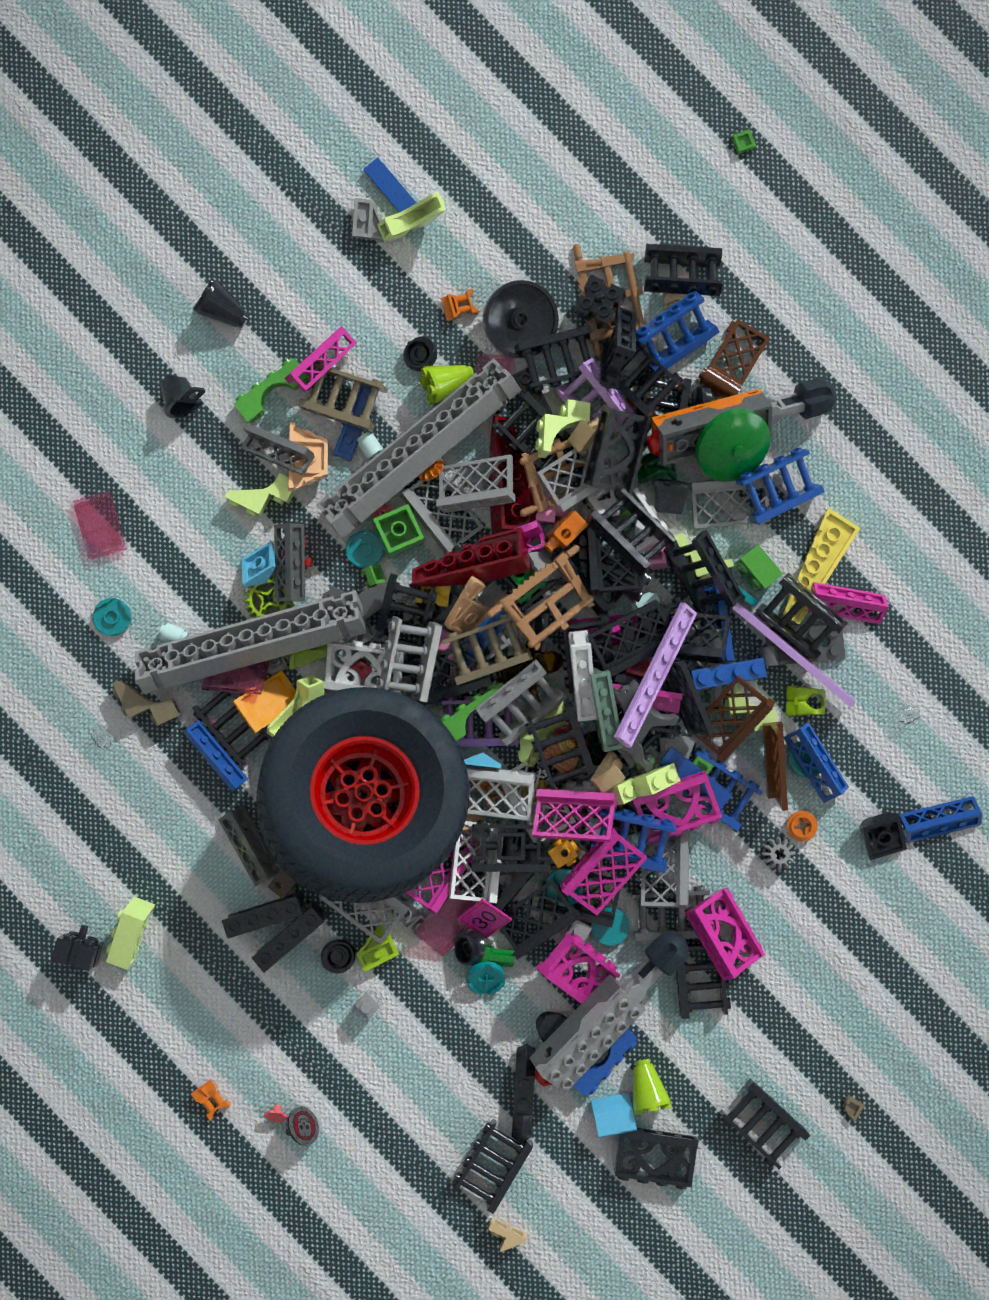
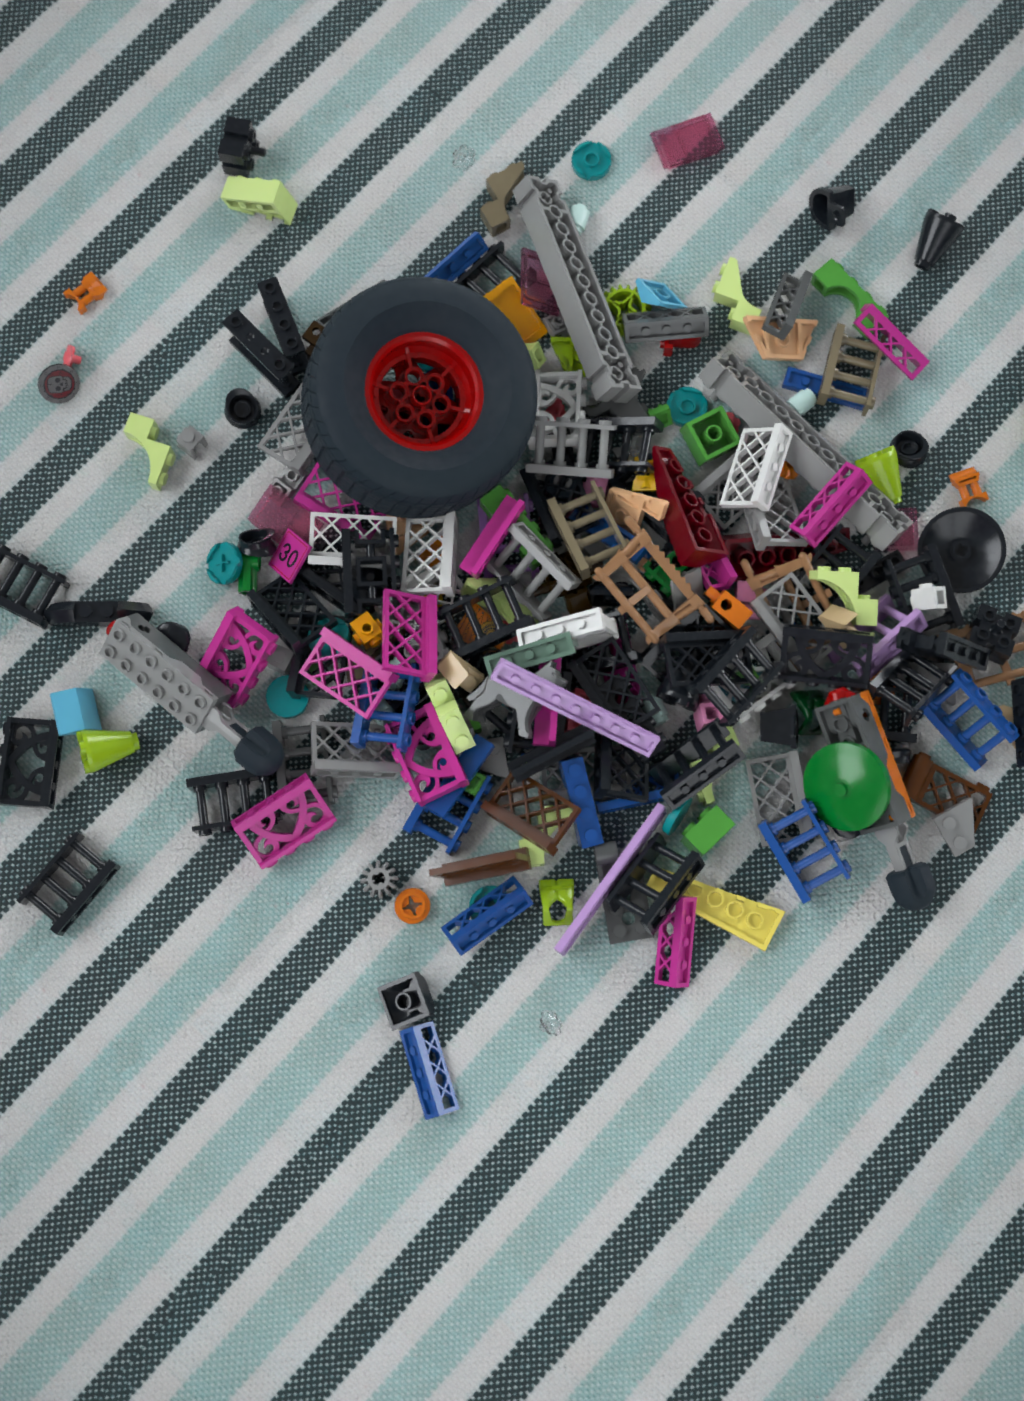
camera: 90 degrees right, 10 degrees down
(374, 953) = (245, 444): lime wing -> none
(379, 1034) = (161, 456): none -> yellowish green arch
(442, 483) = (769, 468): none -> white fence
(482, 429) = (834, 505): none -> dark pink fence
(482, 760) = (465, 538): medium azure slope -> none
(487, 736) = (492, 536): none -> dark pink fence
(568, 354) = (928, 597): none -> white brick
(589, 1081) = (115, 681): blue arch -> none
(765, 352) = (957, 826): none -> light grey wing
(853, 1107) = (89, 987): dark tan tile -> none

